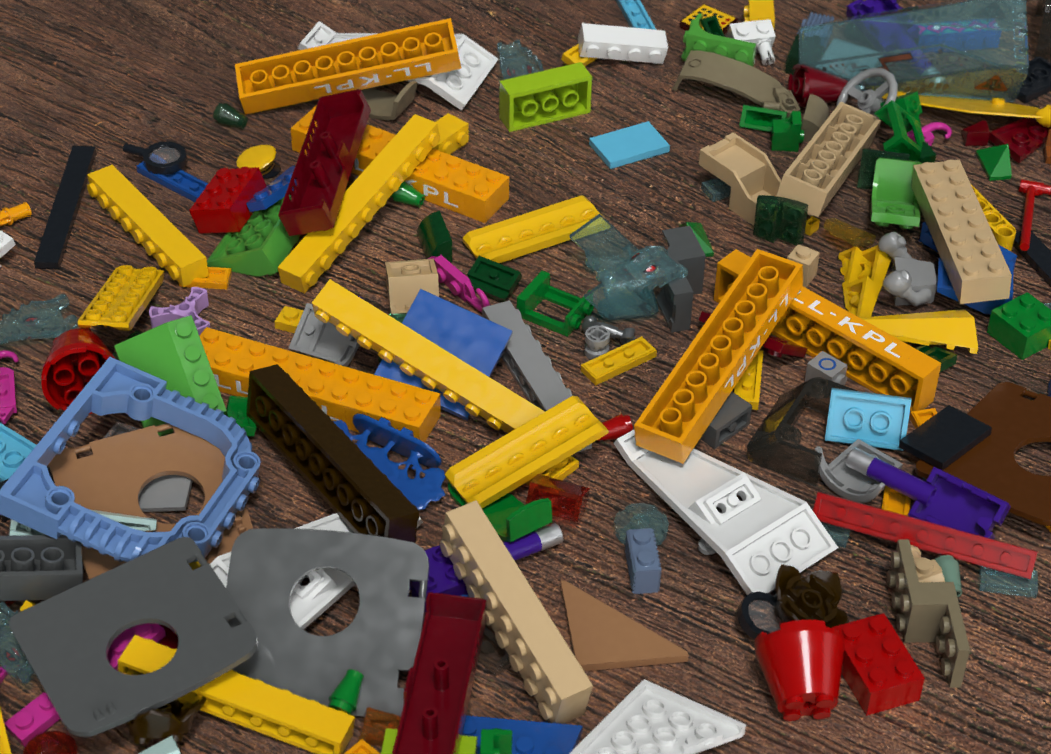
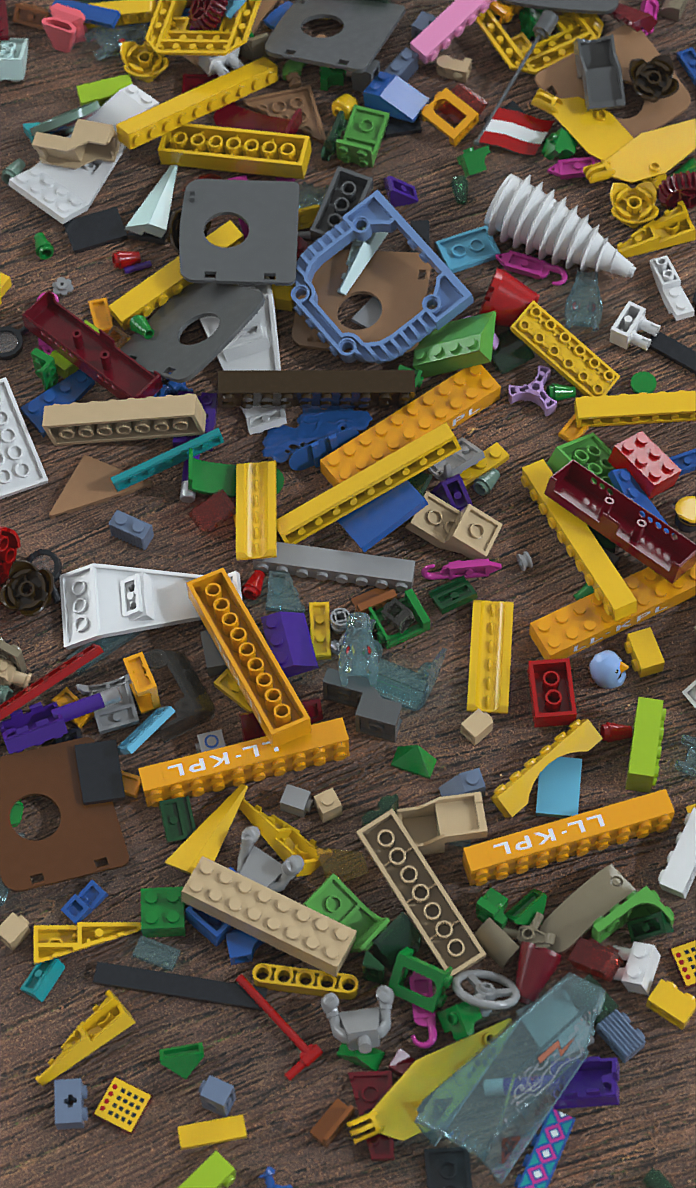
camera: 125 degrees right, 20 degrees up
(47, 273) = (628, 324): none -> white brick
(114, 248) = (643, 382): none -> green piece
(170, 296) = (560, 392): none -> green cone
(408, 246) = (524, 560): none -> light grey bush
(435, 237) = (519, 582): dark green brick -> none
(485, 147) = (606, 669): none -> light blue piece
(544, 129) = (613, 732): none -> red cone
(544, 170) = (551, 692): none -> red brick
(550, 567) = (167, 460): none -> teal tile
(552, 304) = (398, 615): none -> clear smoke brick
(553, 331) = (374, 598): none -> dark orange panel
(608, 400) = (282, 593): none -> clear light blue wing
(622, 207) = (477, 726): none -> tan brick
(640, 517) = (165, 553): clear light blue tile -> none
(641, 152) = (515, 794): none -> yellow arch
(653, 365) = (290, 642): none -> dark purple slope
(674, 102) = (568, 837): none -> light orange brick
(692, 191) = (464, 783): none -> sand blue slope
(772, 55) = (595, 959): none -> clear red brick
(821, 284) = (296, 801): none -> light grey brick
(823, 424) = (142, 683): none -> light orange panel
(979, 155) = (362, 1027): none -> light grey torso

